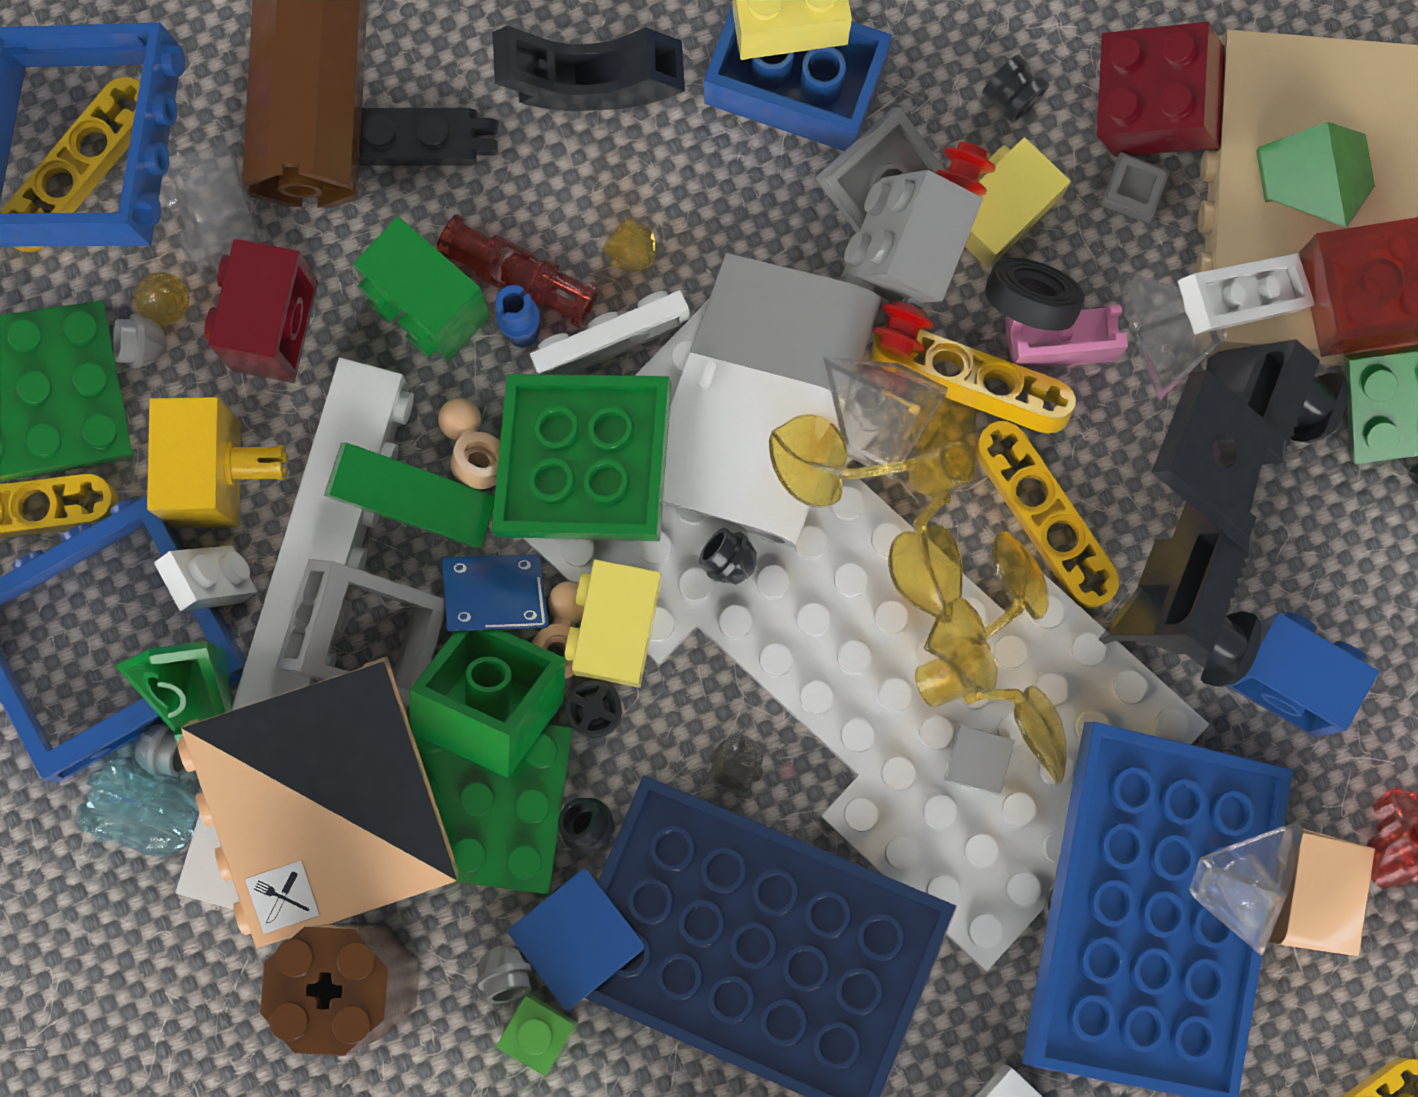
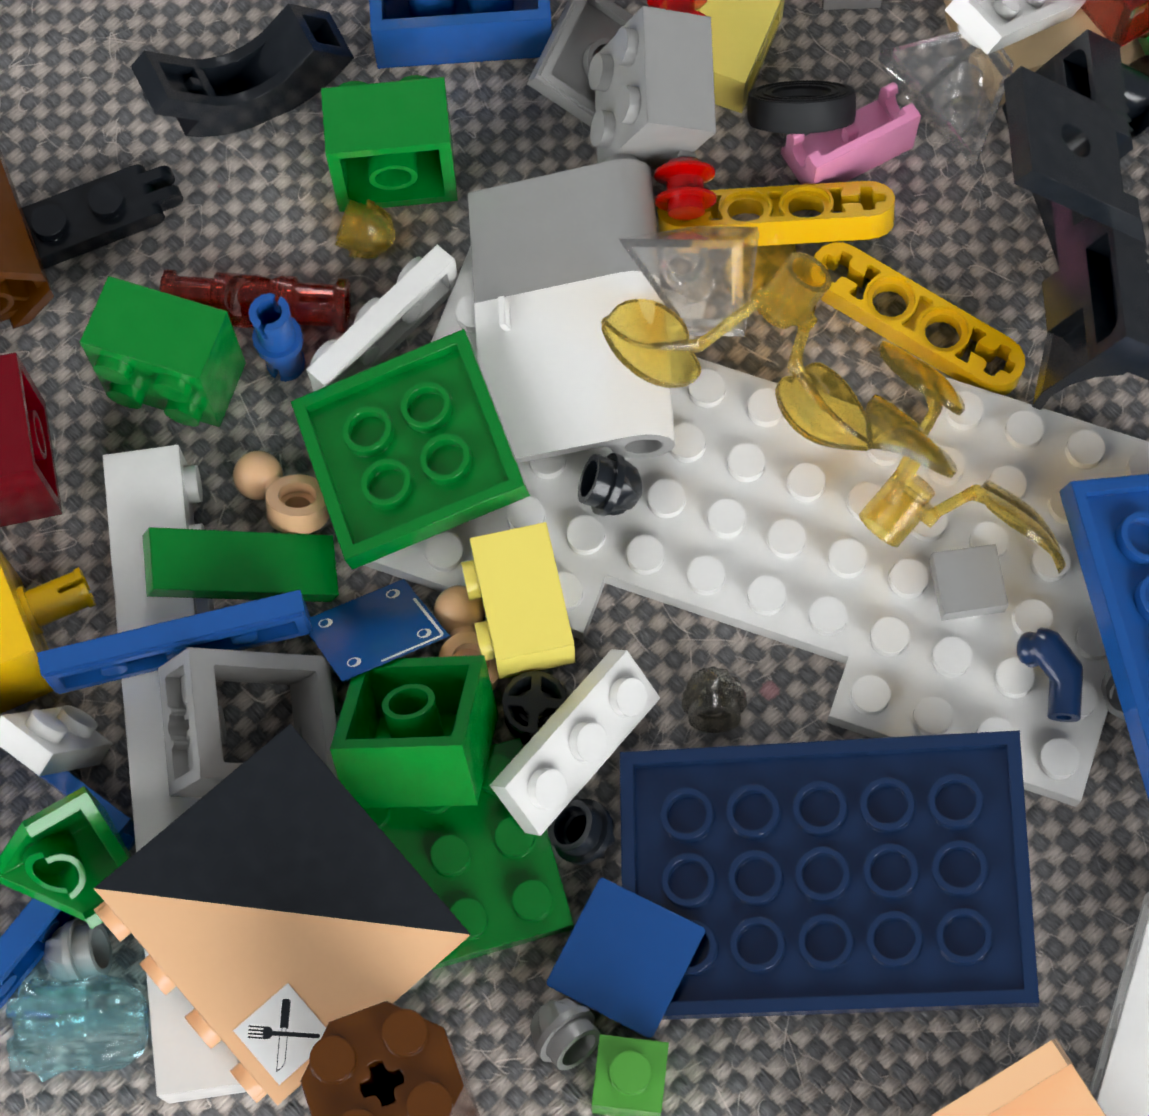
camera: 20 degrees left, 10 degrees down
(330, 545) = (151, 646): none -> blue tile
(611, 753) = (575, 742): none -> white plate
(679, 183) = (390, 142): none -> green brick
(1019, 863) = (1061, 666): none -> dark blue arm

